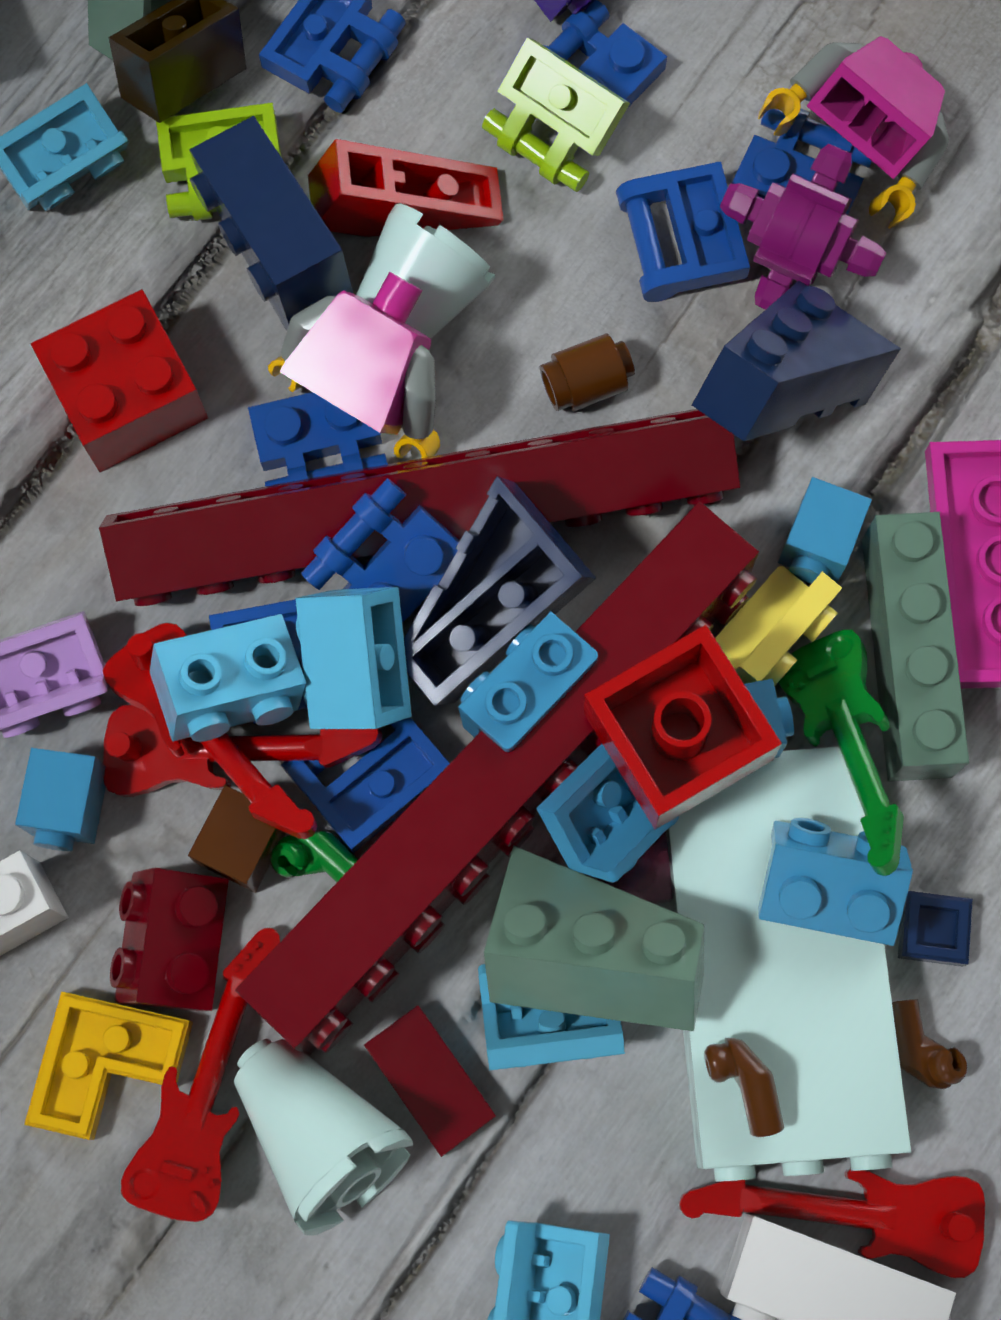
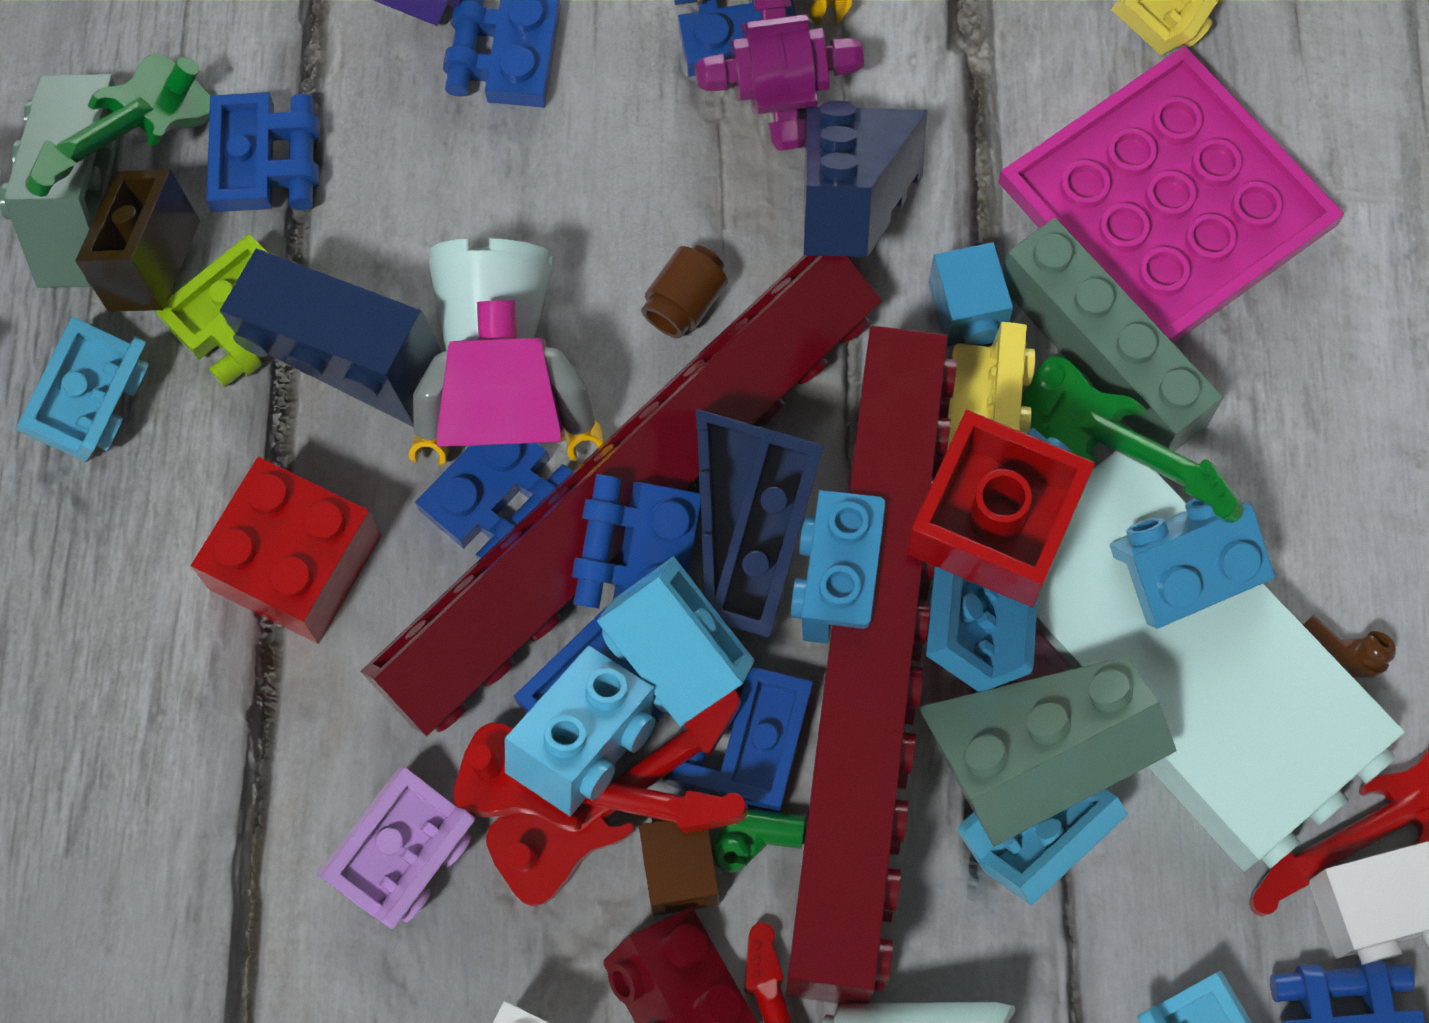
camera: 35 degrees left, 5 degrees down
(61, 798) = (498, 938): dark azure brick -> none
(361, 183) = (392, 245): red slope -> none
(430, 1080) = (983, 954): dark red tile -> none
(563, 99) = (503, 79): plate -> none
(705, 236) = (693, 117): blue plate -> none
(754, 1079) = (1249, 757): reddish brown arm -> none
(935, 929) = (1292, 550): dark blue tile -> none

